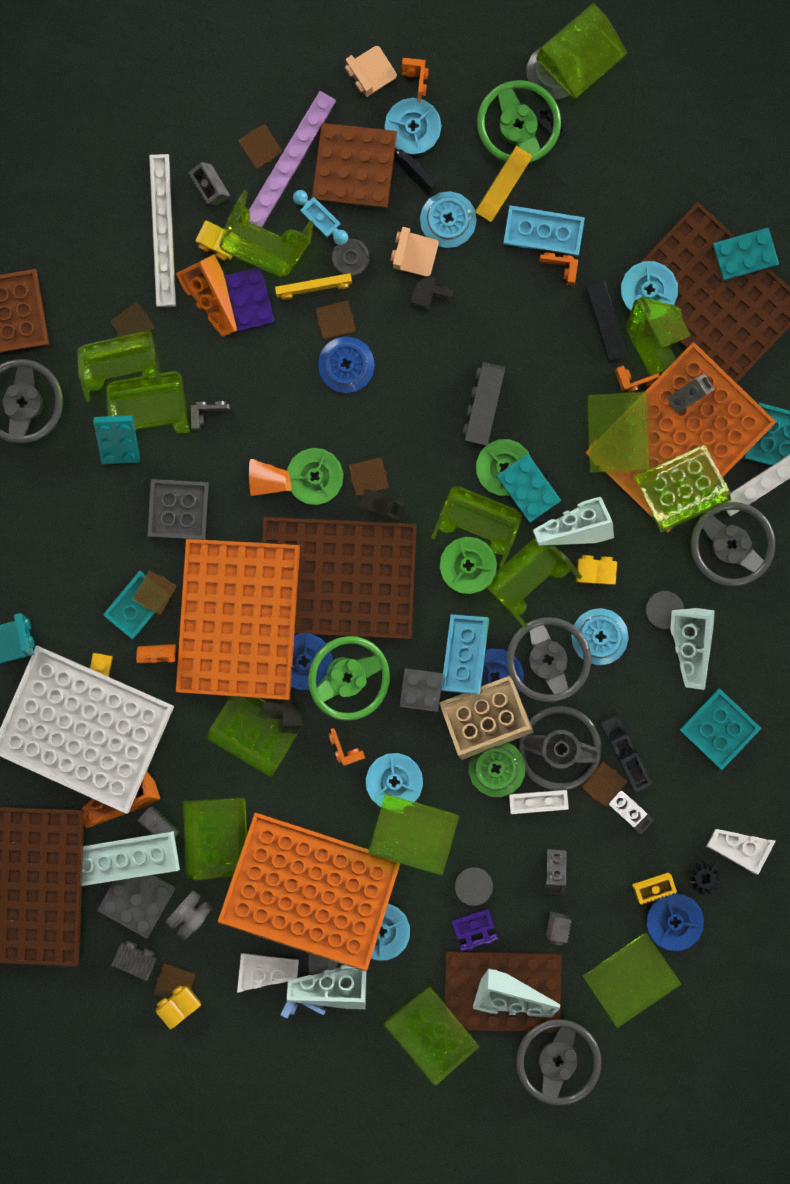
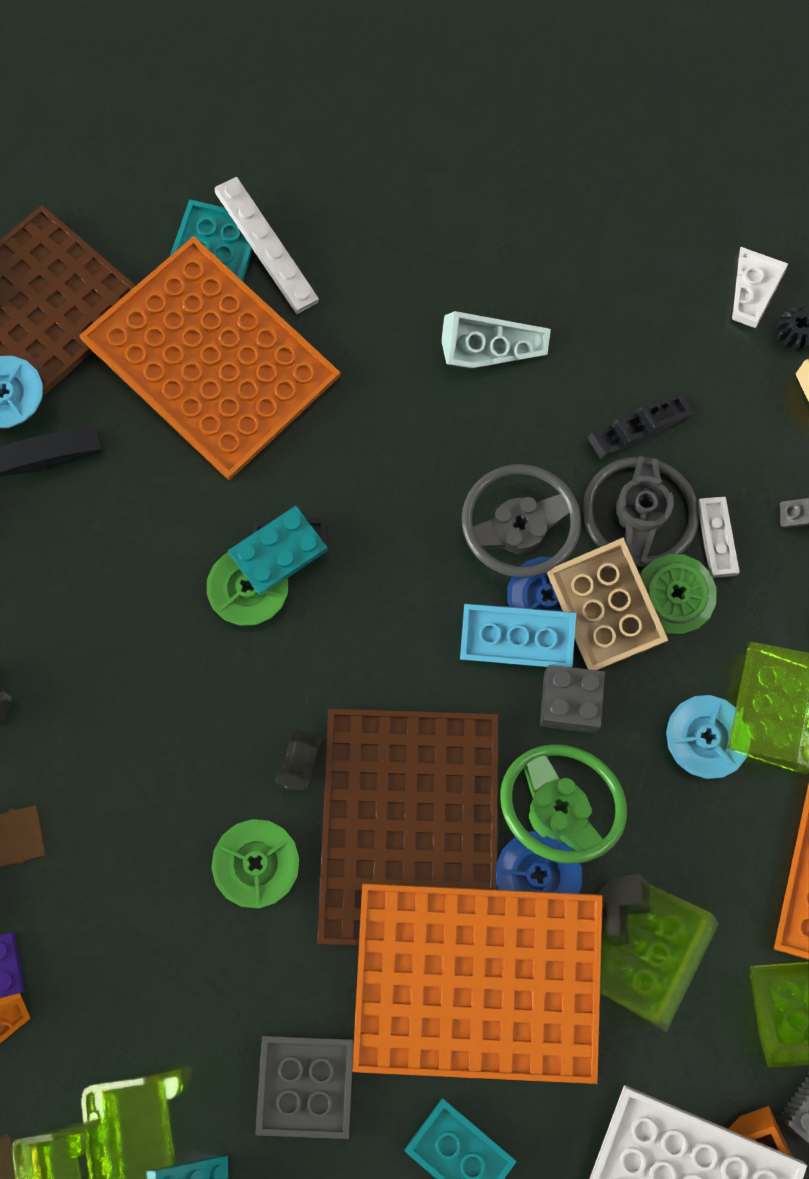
camera: 90 degrees left, 15 degrees down
(154, 592) = (439, 1124): clear orange piece -> none
(156, 653) = (538, 1118): orange slope -> none
(198, 419) = (160, 1055): flat silver bracket -> none
(267, 478) = (258, 938): orange slope -> none
(339, 377) = (105, 827): blue piece -> none
(353, 755) = (675, 797): orange bracket -> none
(369, 476) = (255, 782): clear orange piece -> none
(478, 554) = (392, 615): bright green piece -> none
(480, 517) = (321, 615): clear neon green windscreen -> none
(484, 404) = (153, 612): dark grey wedge -> none
(527, 572) = (395, 555): clear neon green windscreen -> none
(583, 525) = (330, 479): light aqua wedge -> none
(597, 571) = (394, 463): yellow brick -> none
(604, 784) = (685, 453): clear orange piece -> none
(611, 626) = (465, 462): medium azure piece -> none
(618, 432) = (200, 428): clear neon green slope -> none
(624, 380) = (129, 428): orange bracket -> none
(631, 812) = (719, 419): bracket -> none
(653, 330) = (52, 395): clear neon green windscreen -> none
(660, 608) = (444, 382): dark grey tile -> none
(683, 488) = (280, 347): clear neon green slope -> none
(691, 393) = (151, 337): flat silver bracket -> none
(720, 729) = (601, 311): teal plate -> none
(741, 554) = (357, 283): dark grey piece -> none

